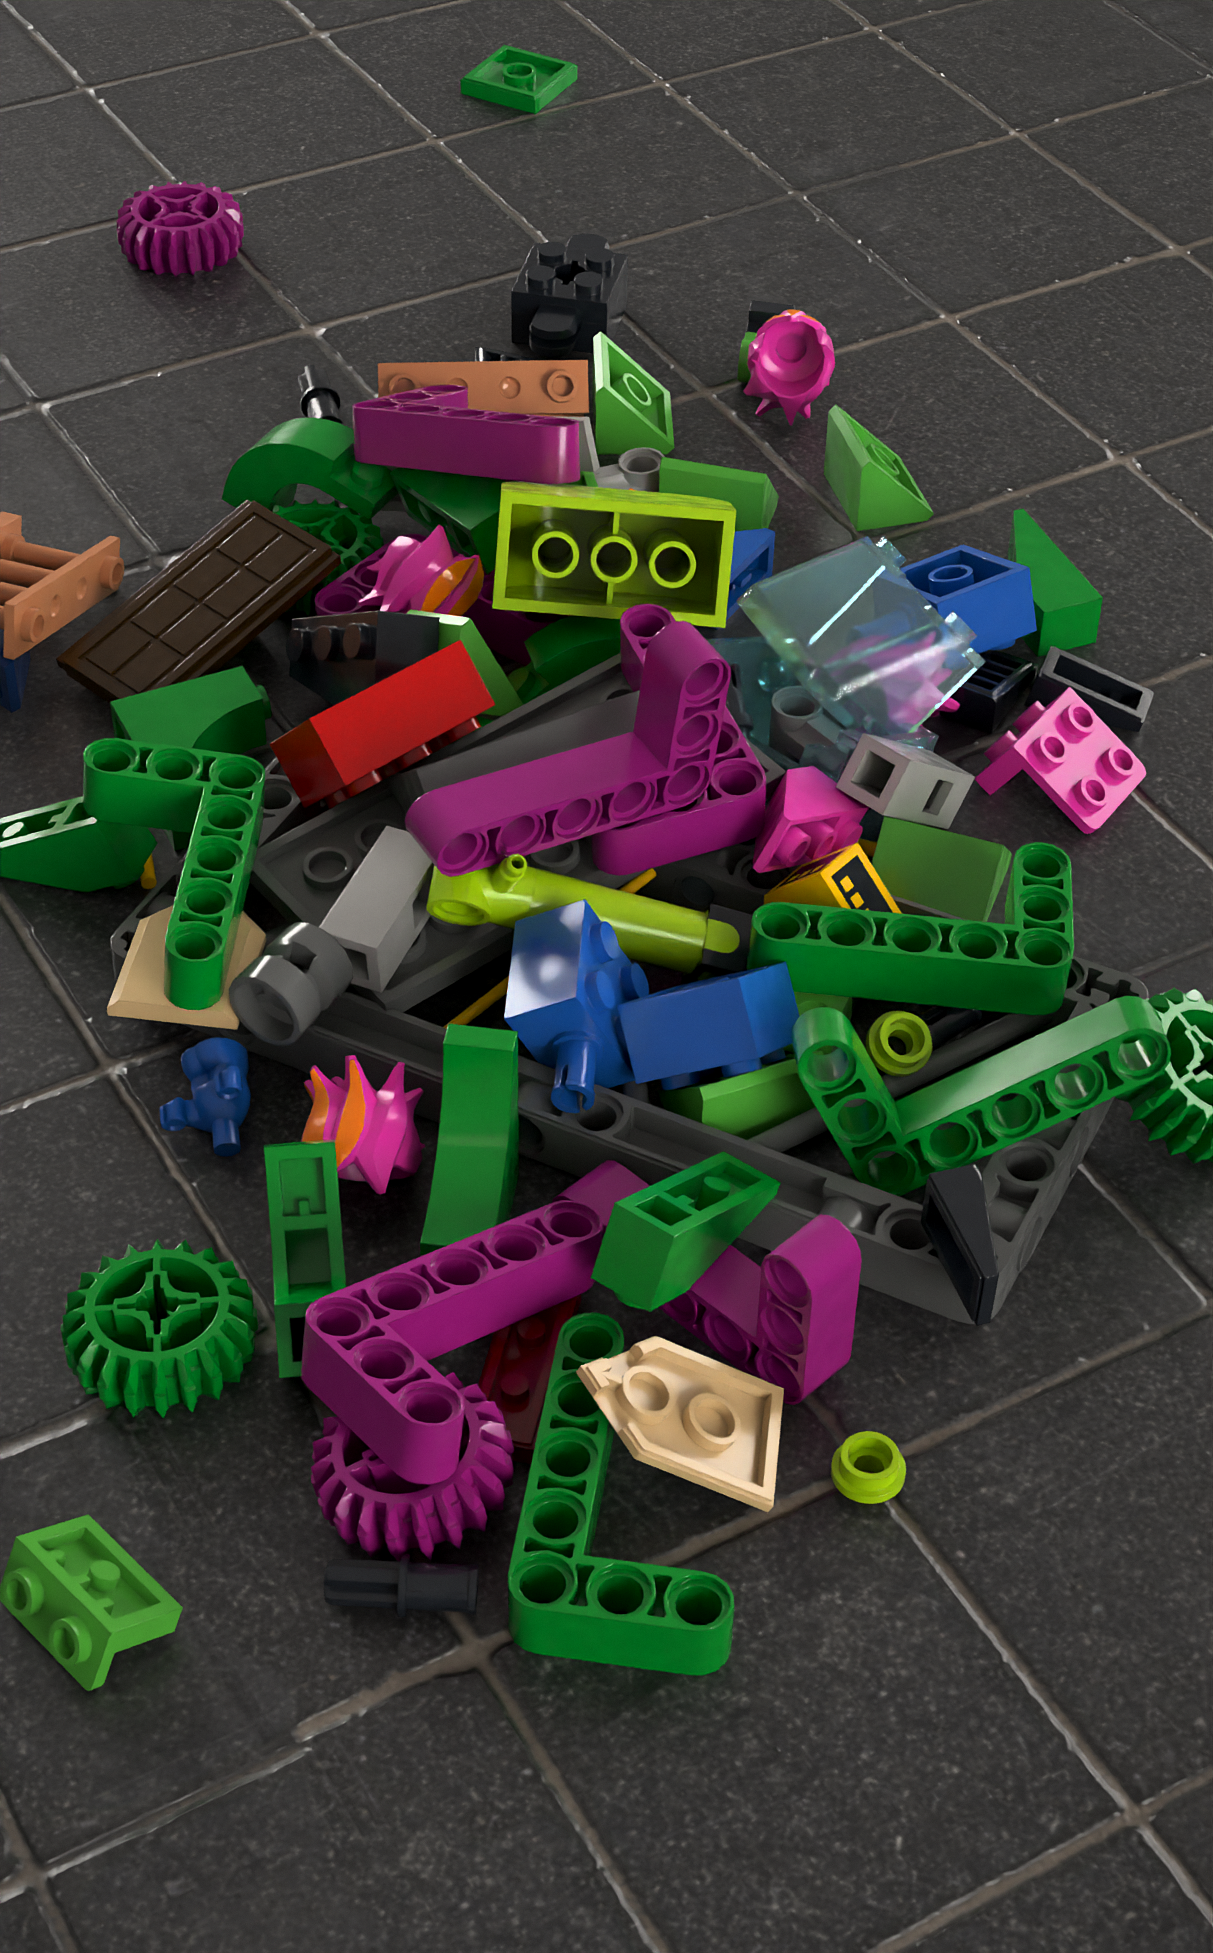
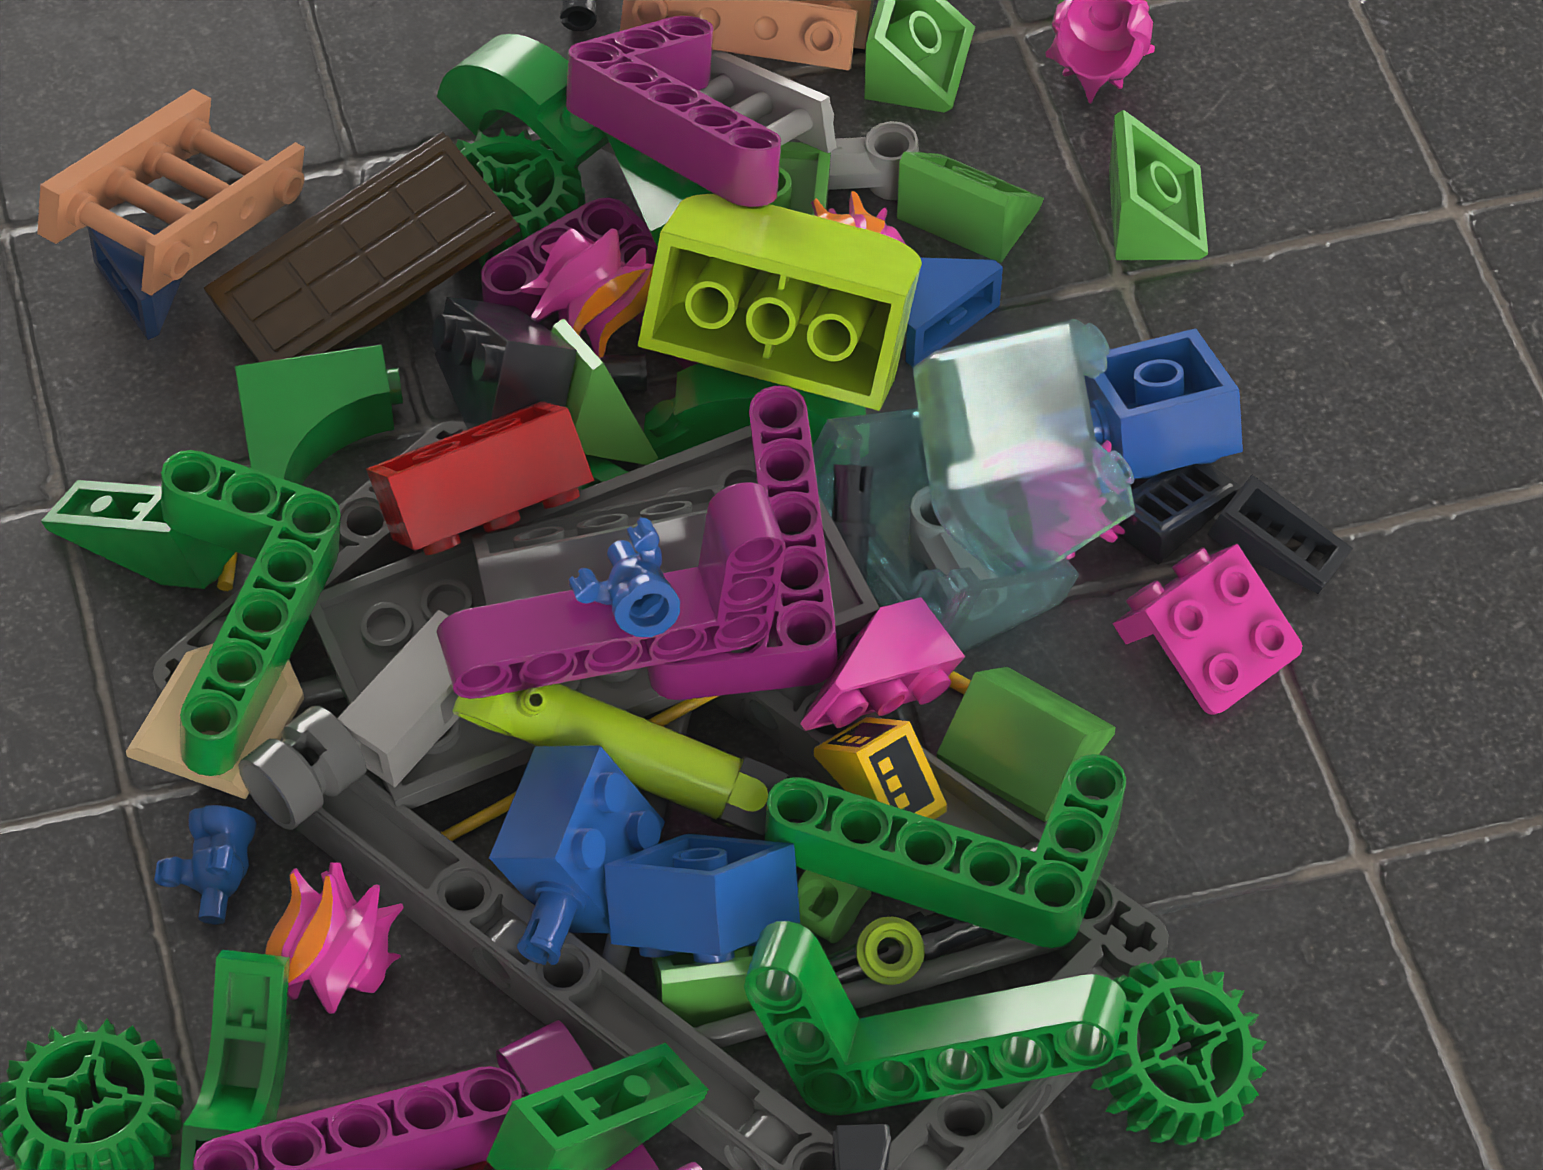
camera: 15 degrees right, 10 degrees up
(476, 1137) = (429, 993): green arch -> none
(593, 742) = (636, 587): none -> blue piece
(905, 781) = (1015, 632): light grey brick -> none
(1063, 598) = (1280, 394): green slope -> none

